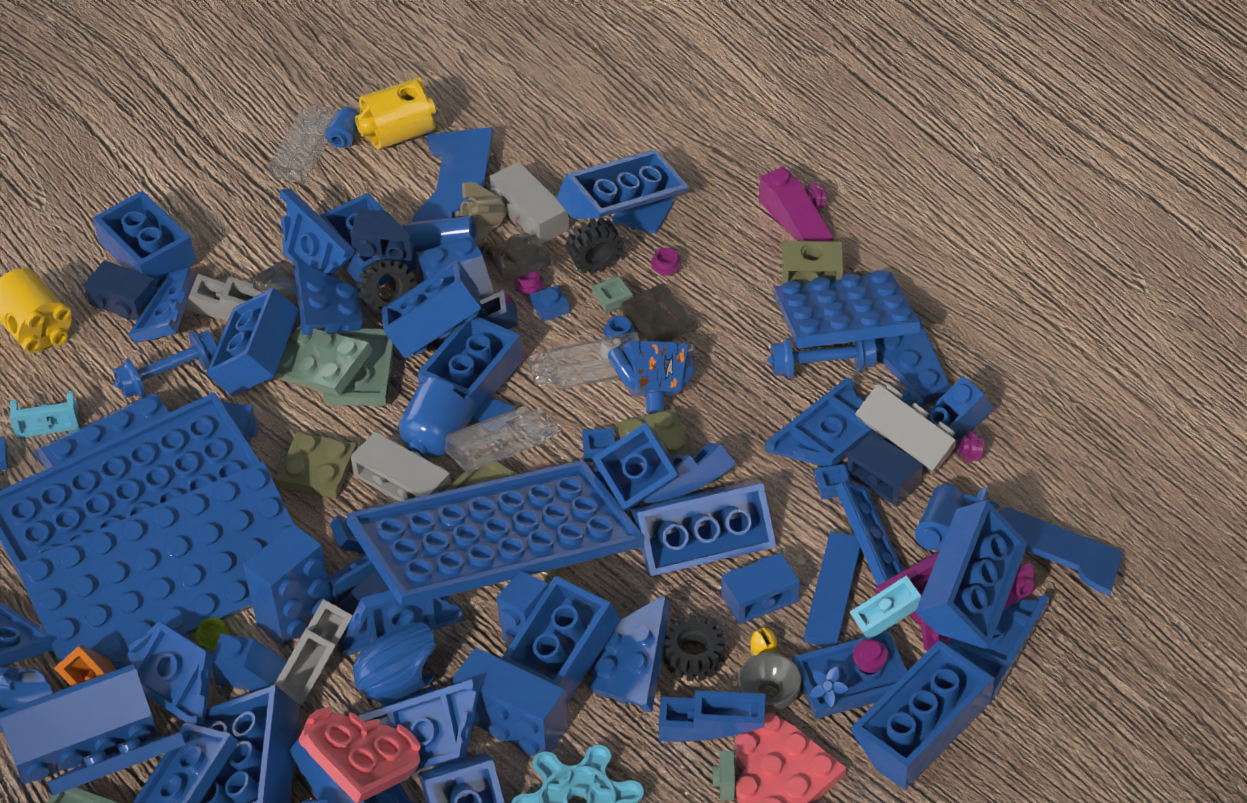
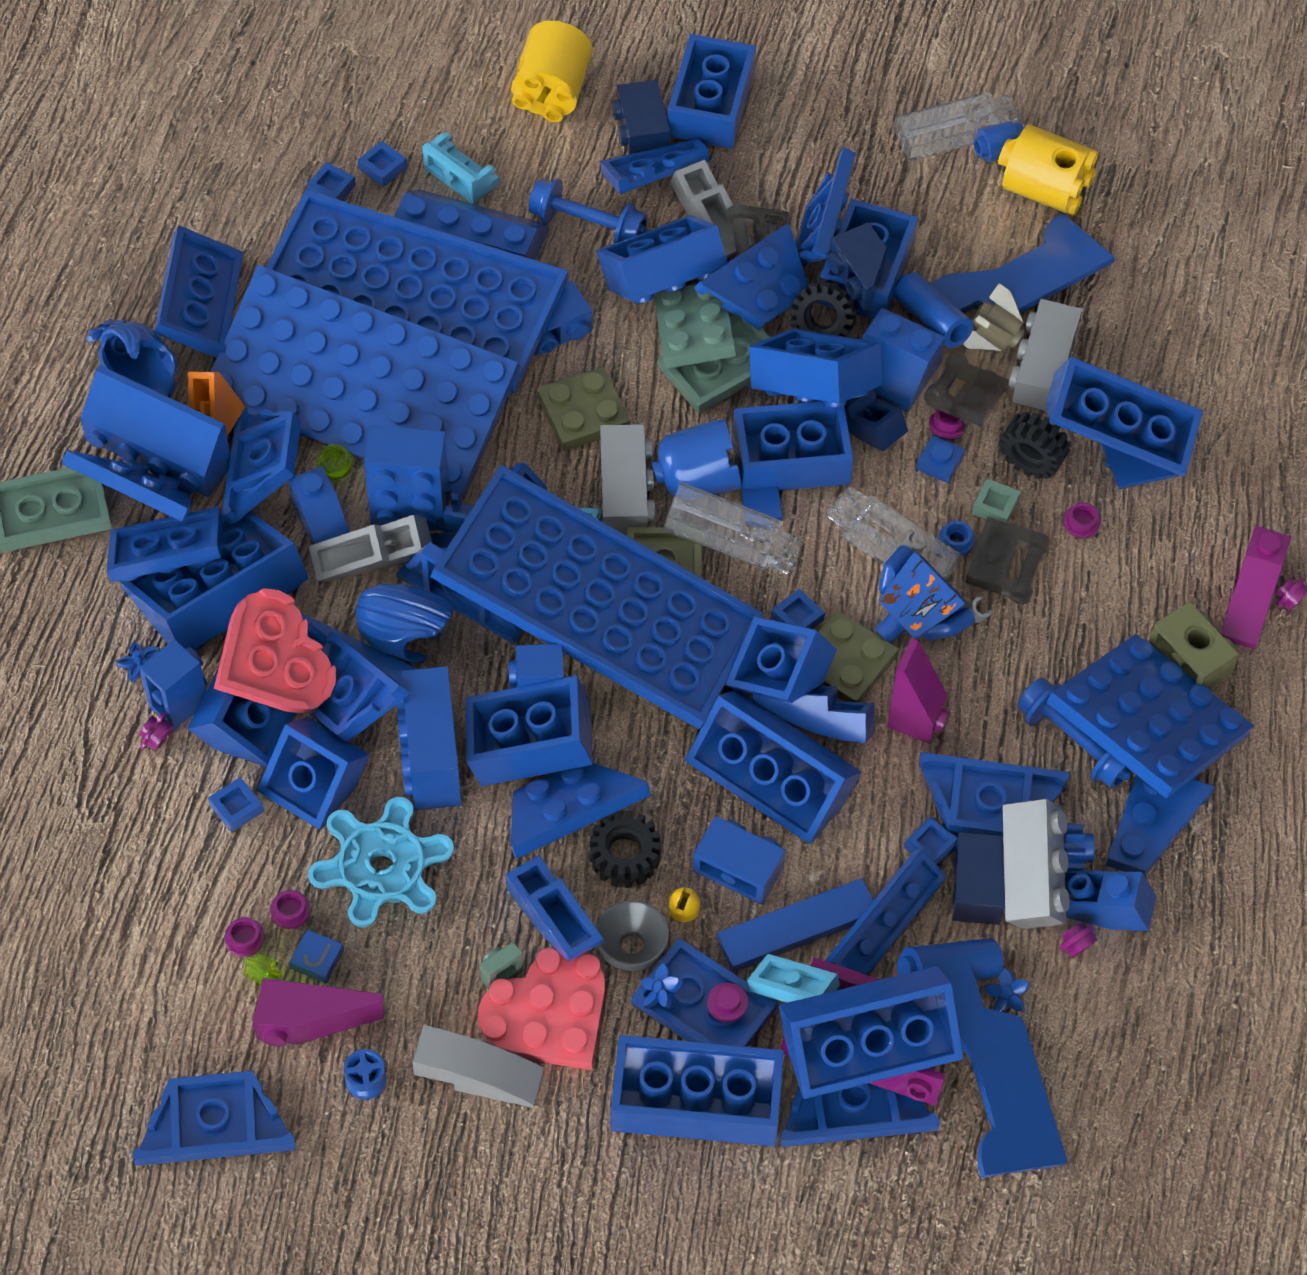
camera: 50 degrees right, 10 degrees up
(728, 417) = (917, 696): none -> magenta slope

